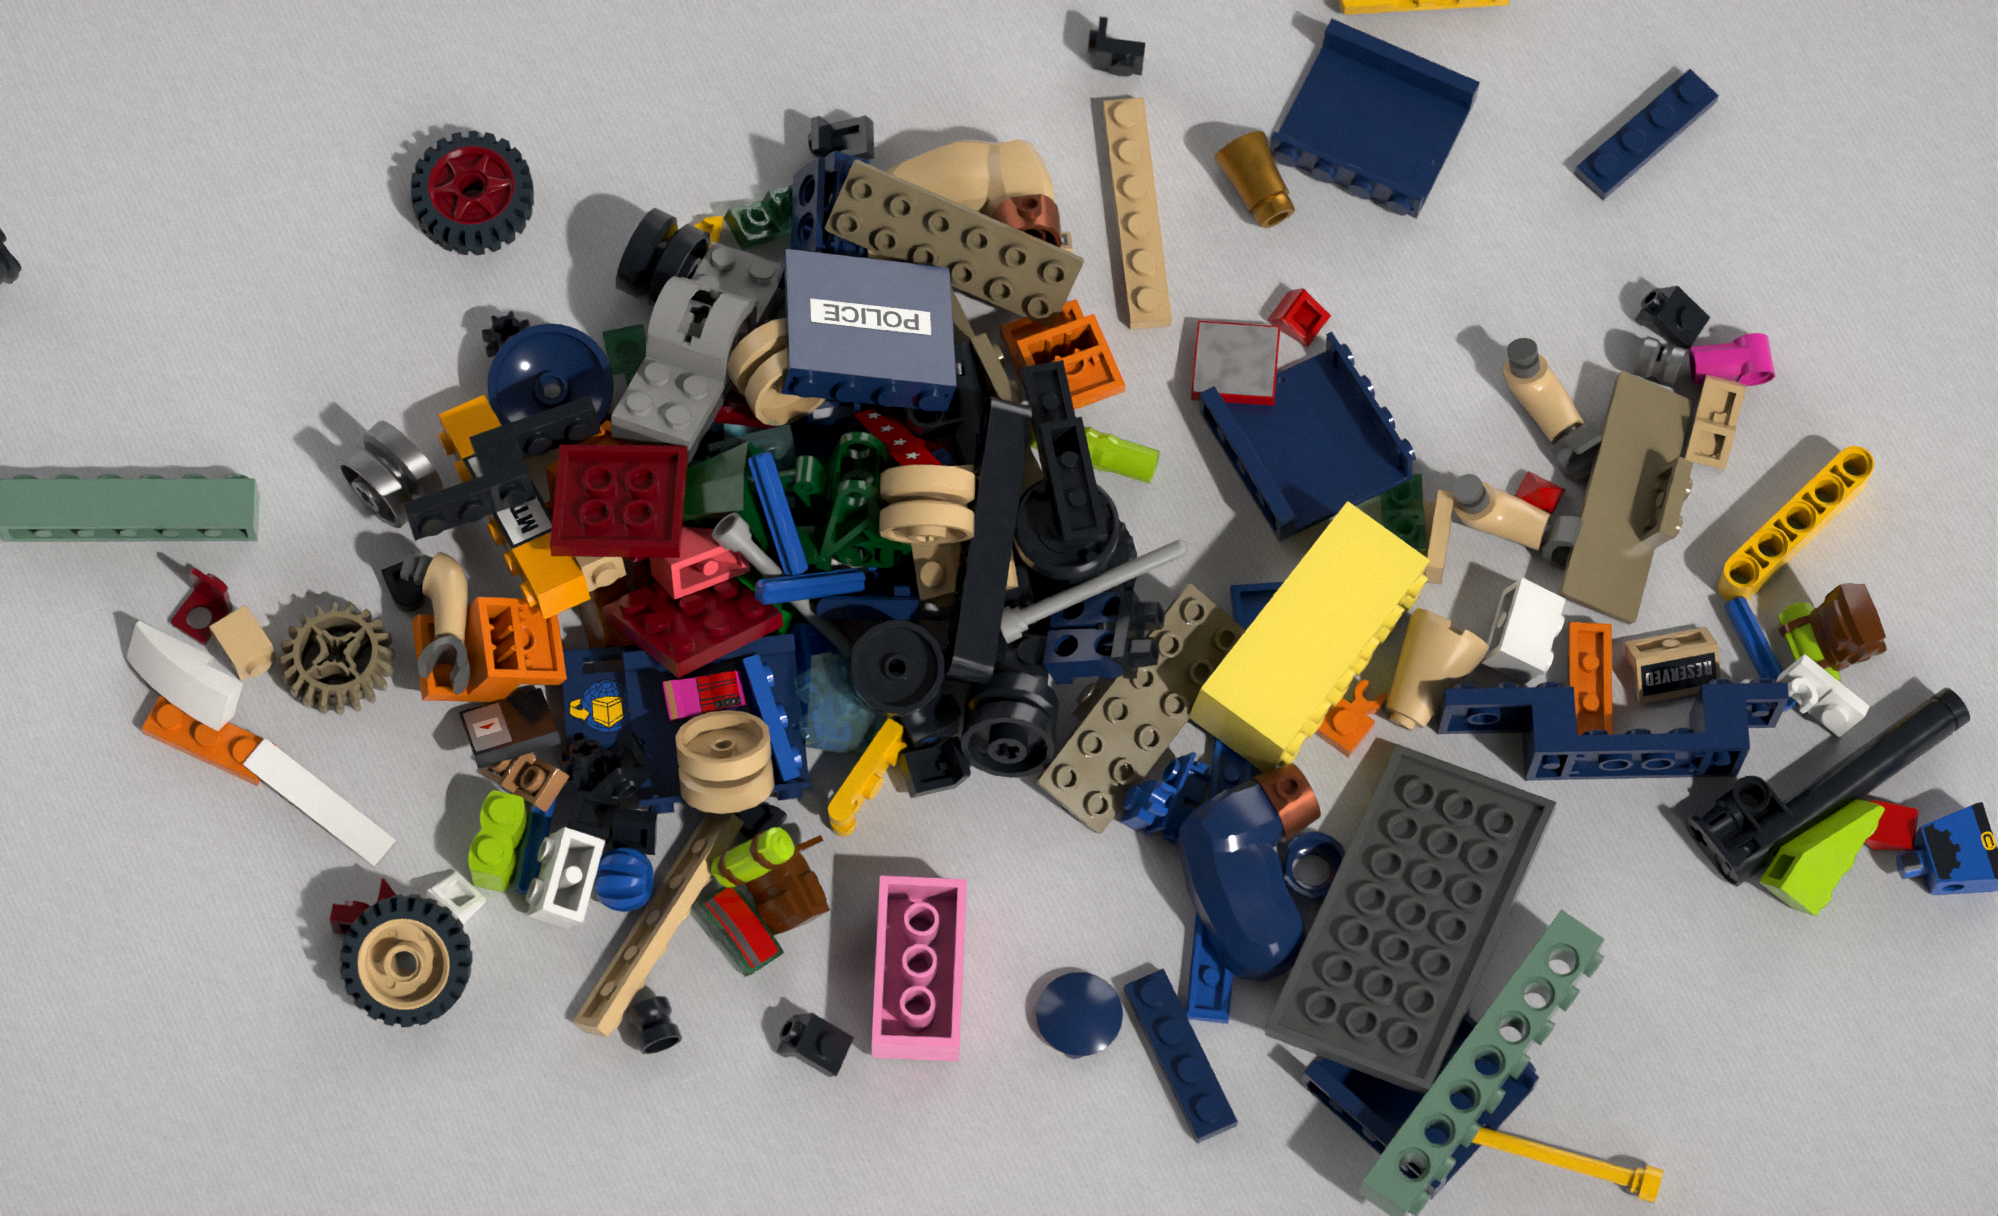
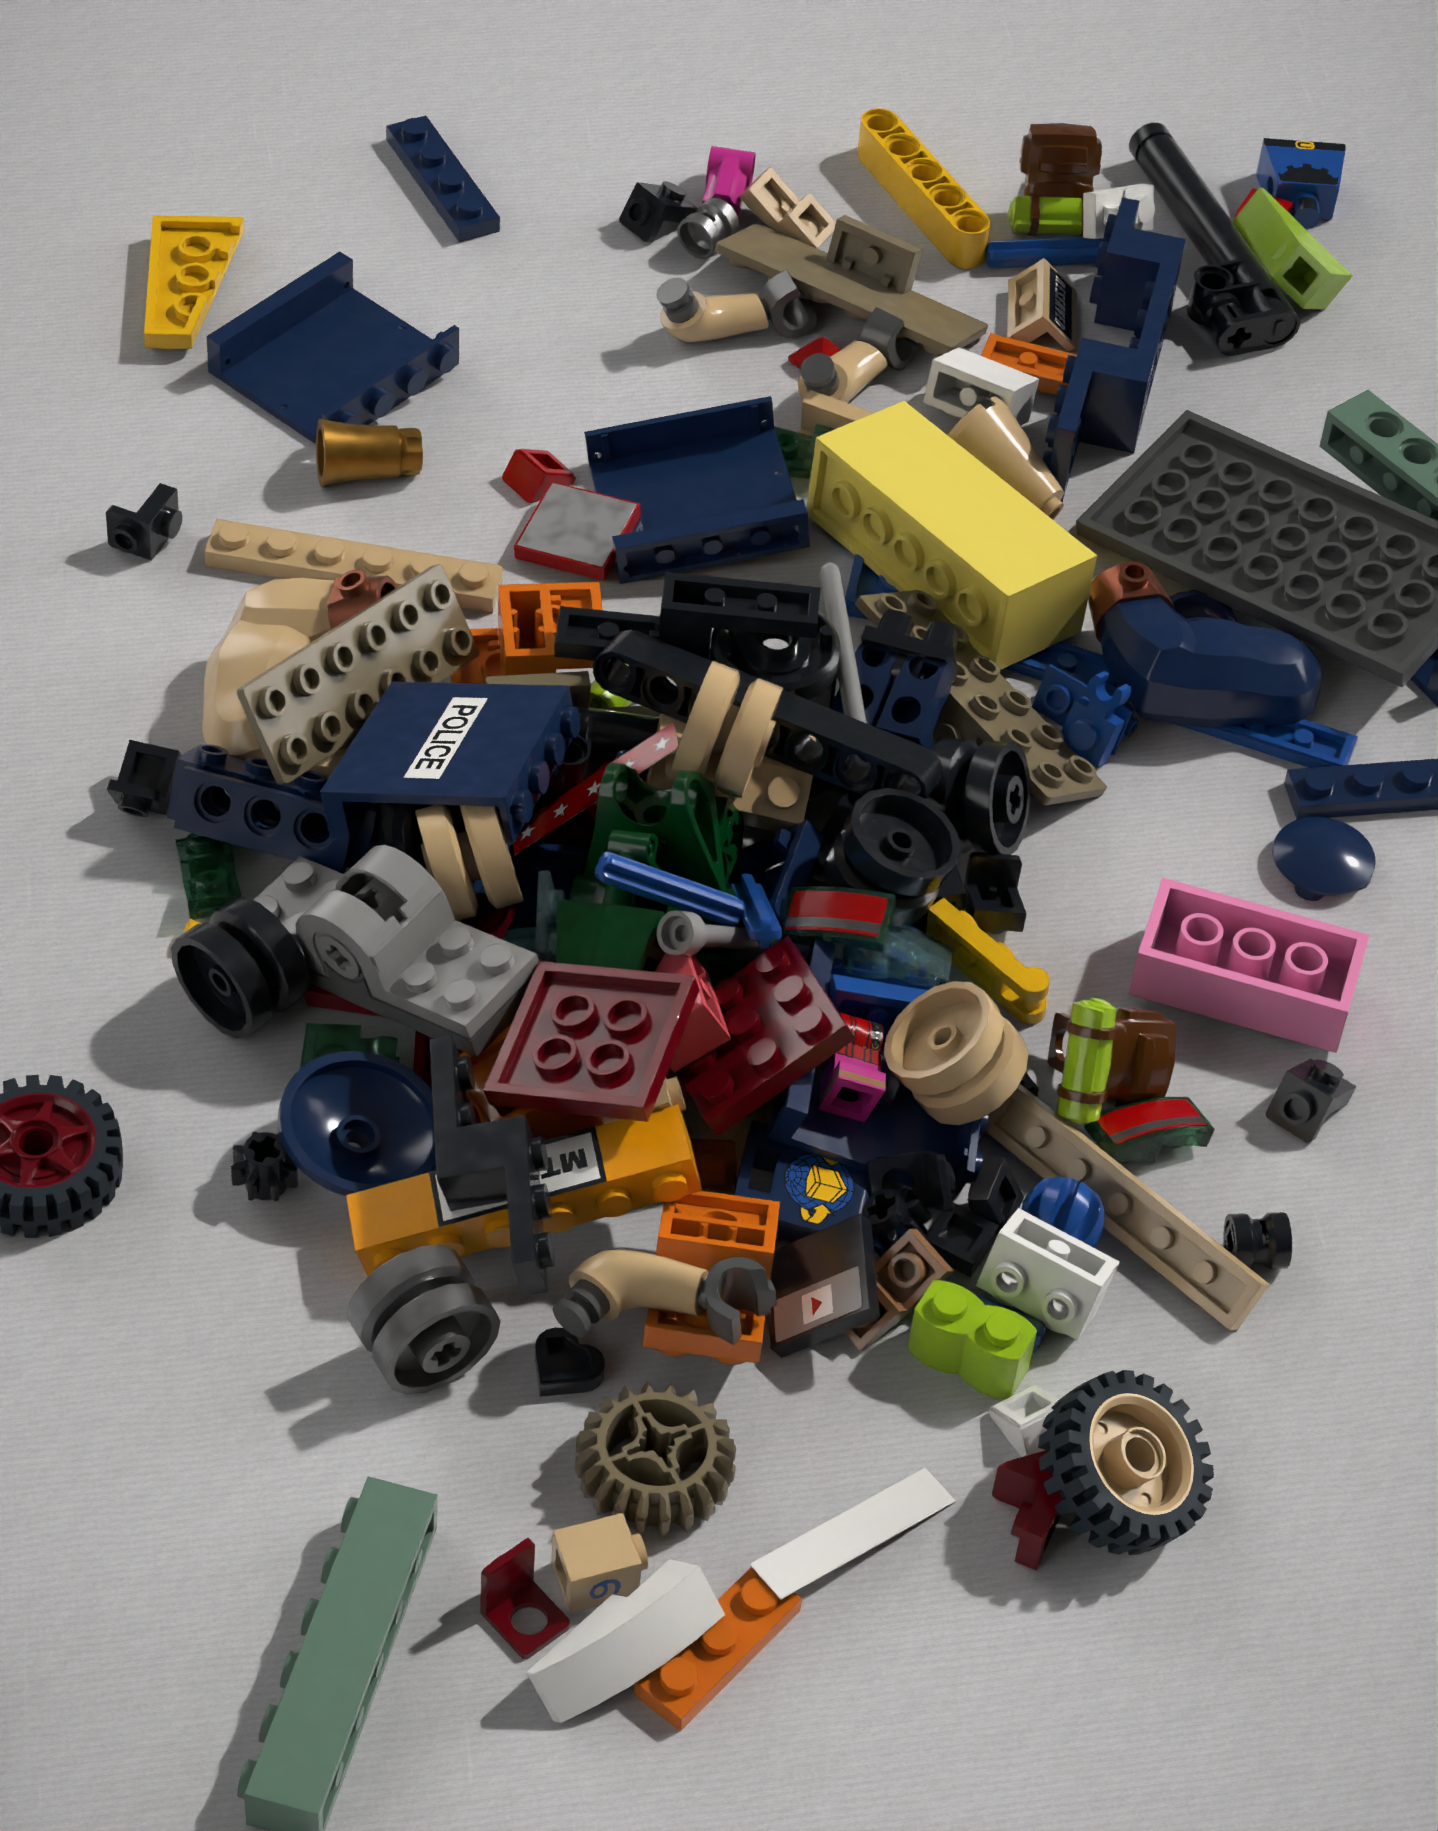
camera: 75 degrees left, 20 degrees down
(815, 644) = (839, 916): none -> slope

